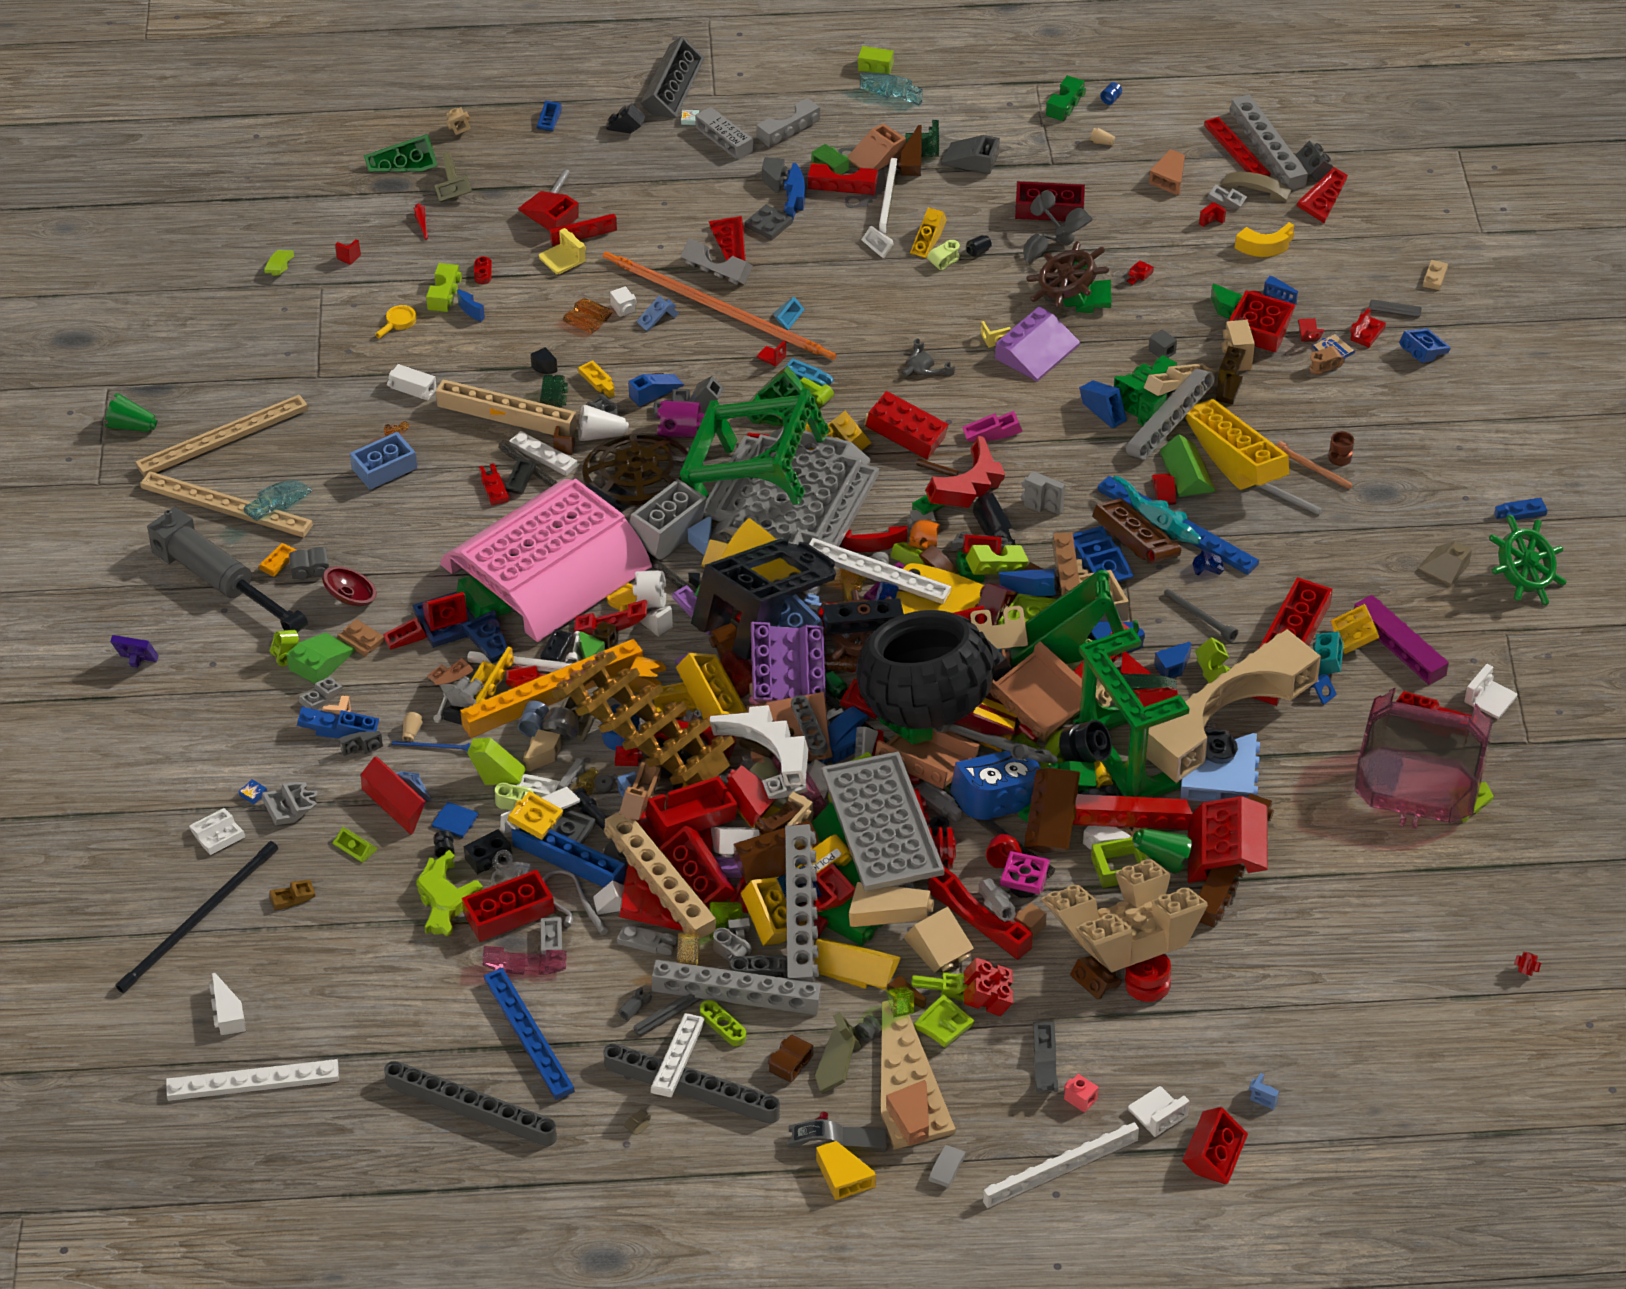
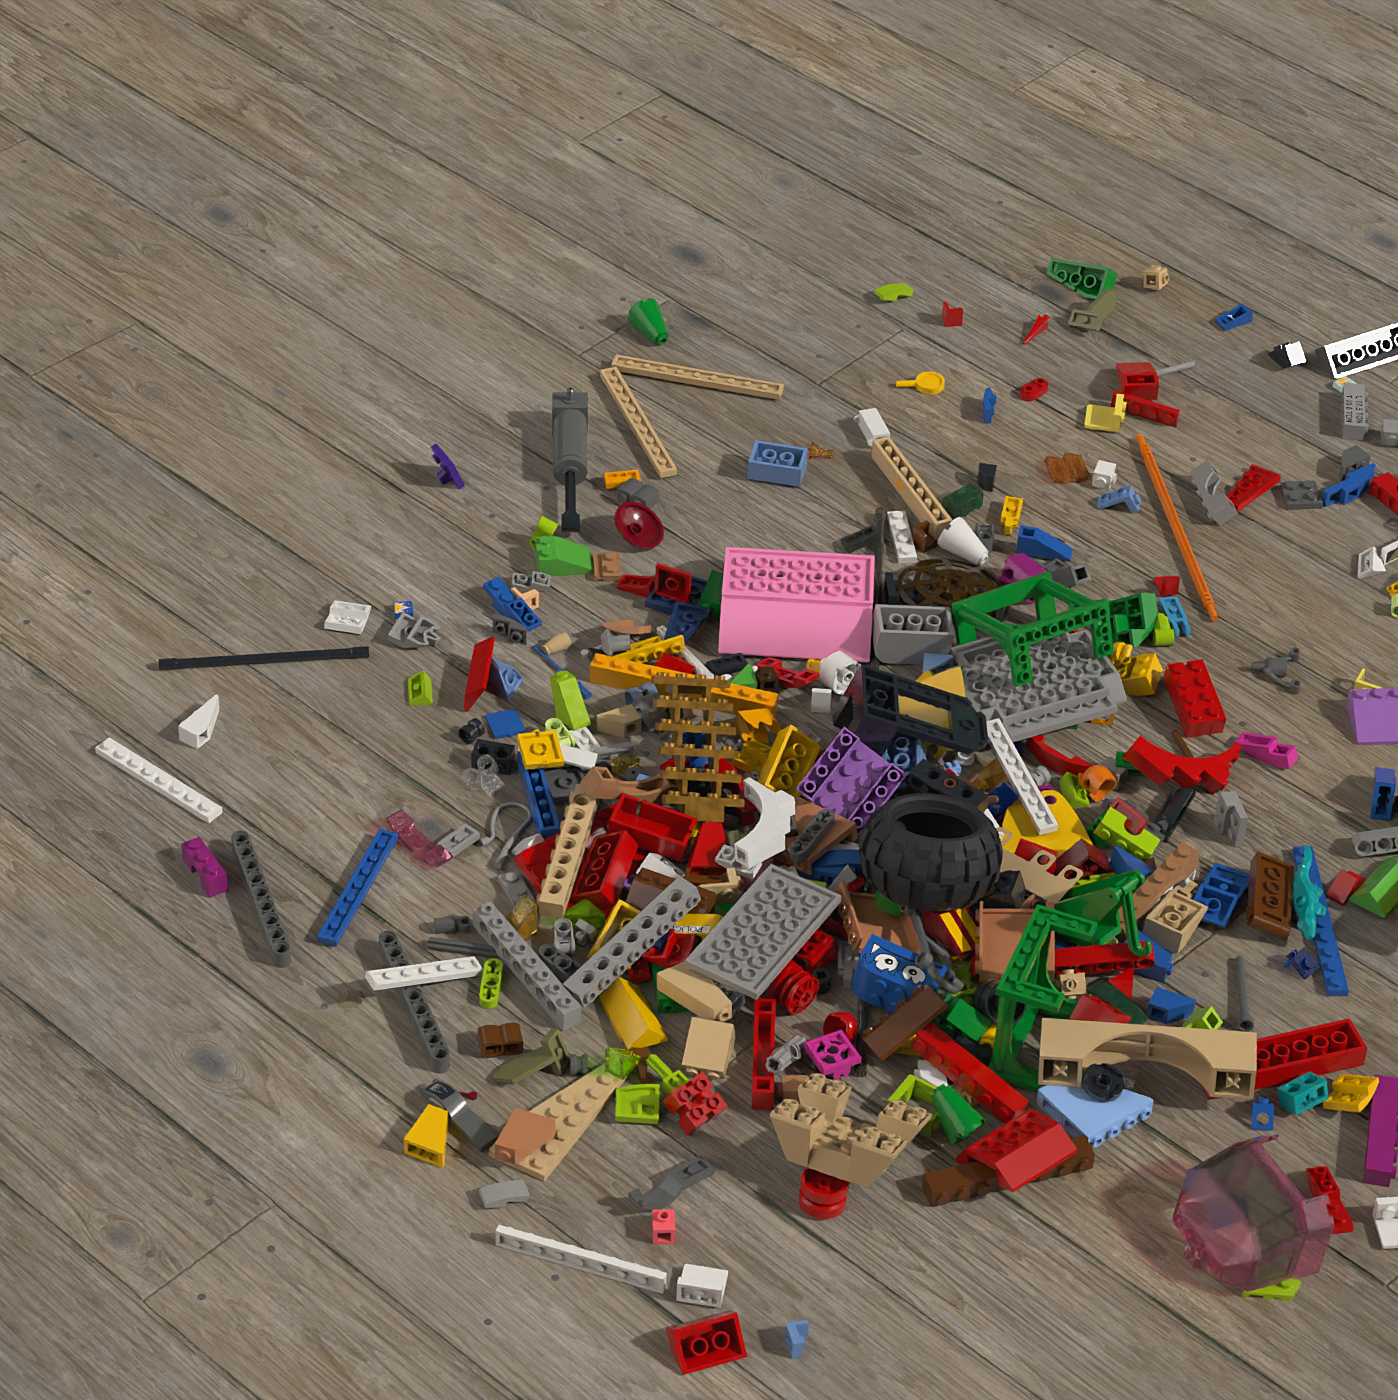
camera: 45 degrees right, 5 degrees down
(276, 495) = (679, 437): clear light blue slope -> none
(296, 894) = (339, 691): pearl gold slope -> none
(410, 1116) = (200, 859): none -> magenta arch
(442, 895) = (423, 762): lime animal -> none
(446, 280) = (997, 378): lime arch -> none
(493, 486) = (832, 537): red hinge -> none
(508, 905) = (454, 797): red brick -> none
(789, 313) = (1222, 566): dark azure slope -> none
(935, 558) = (1081, 804): reddish brown slope -> none
(1094, 976) = (784, 1168): reddish brown bracket -> none

